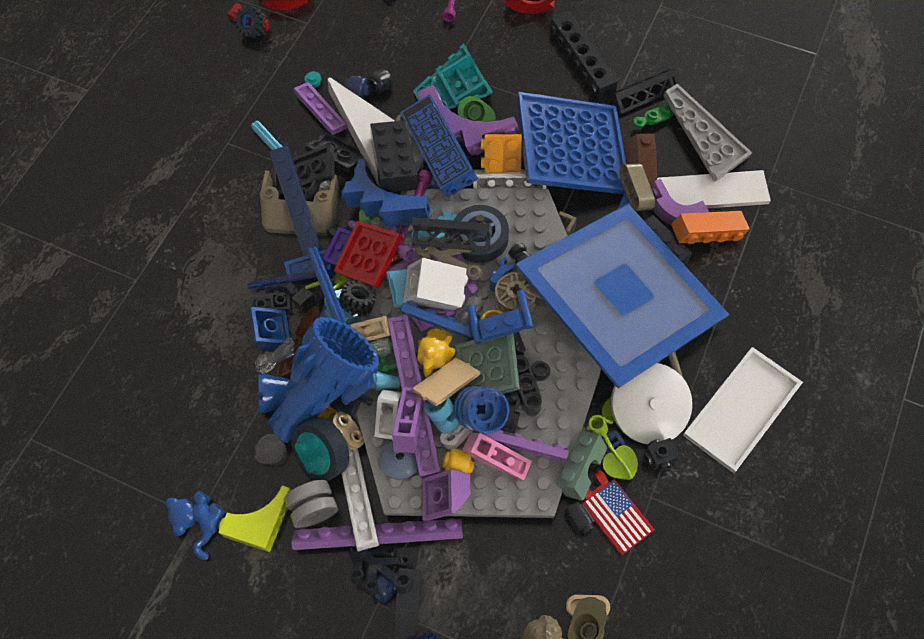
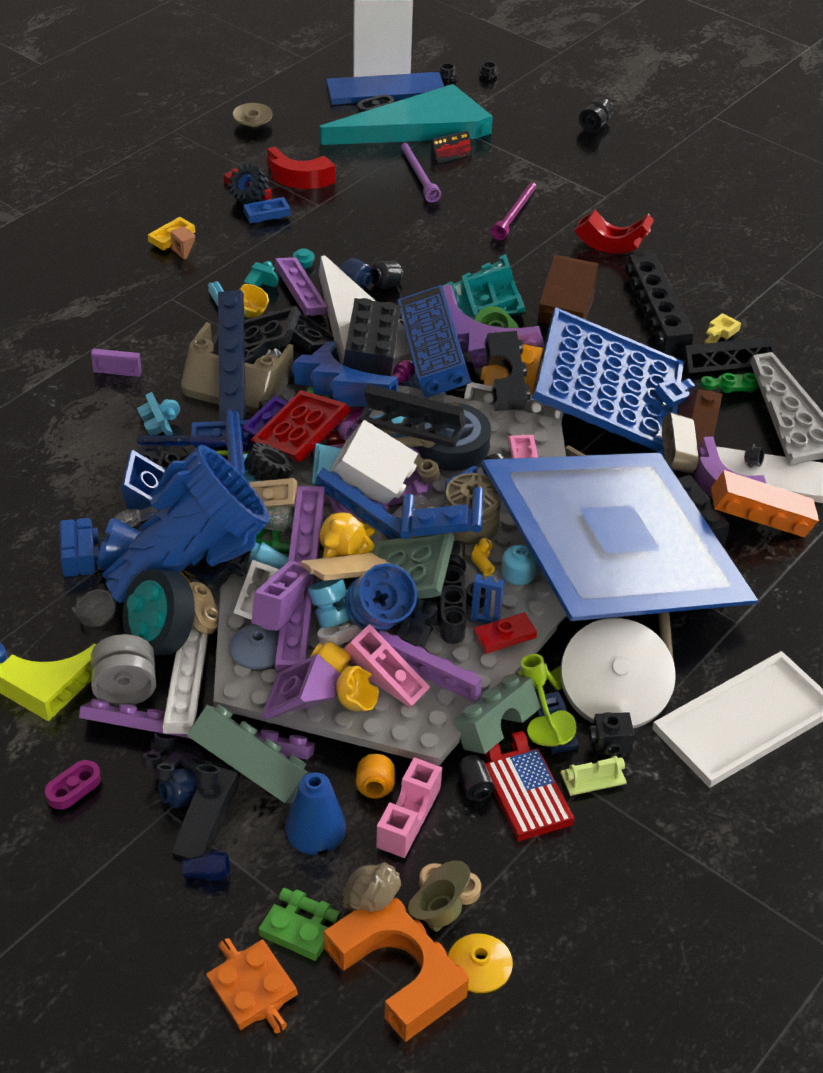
camera: 10 degrees right, 20 degrees down
(207, 82) = (161, 237): none -> yellow plate
(208, 219) = (116, 362): none -> medium lavender tile
(218, 88) = (182, 241): none -> nougat slope
(238, 397) = (77, 547): none -> blue brick
(258, 258) = (156, 415): none -> medium azure hips
(271, 40) = (266, 210): none -> blue plate
(286, 105) = (262, 274): none -> teal piece
(288, 134) = (254, 300): none -> yellow hair
(306, 605) = (71, 784): none -> magenta plate
(423, 551) = (248, 753): none -> sand green brick
(484, 483) = (355, 690): none -> yellow hair
(484, 594) = (315, 816): none -> blue cone
(499, 149) = (506, 351): none -> black arch
(512, 537) = (375, 776): none -> light orange head
(517, 65) = (568, 287): none -> reddish brown slope
(531, 336) = (480, 556): none -> yellow arm
(534, 234) = (522, 446): none -> bright pink plate
(544, 558) = (403, 821): none -> bright pink arch
(551, 376) = (489, 585): none -> blue tile
(562, 339) = (518, 565): none -> medium azure head
(568, 397) = (505, 633): none -> red plate
(619, 140) = (674, 393): none -> blue plate
(633, 66) = (723, 327): none -> light yellow plate
(657, 490) = (595, 776): none -> yellowish green hinge
(689, 181) = (754, 455): none -> black plate

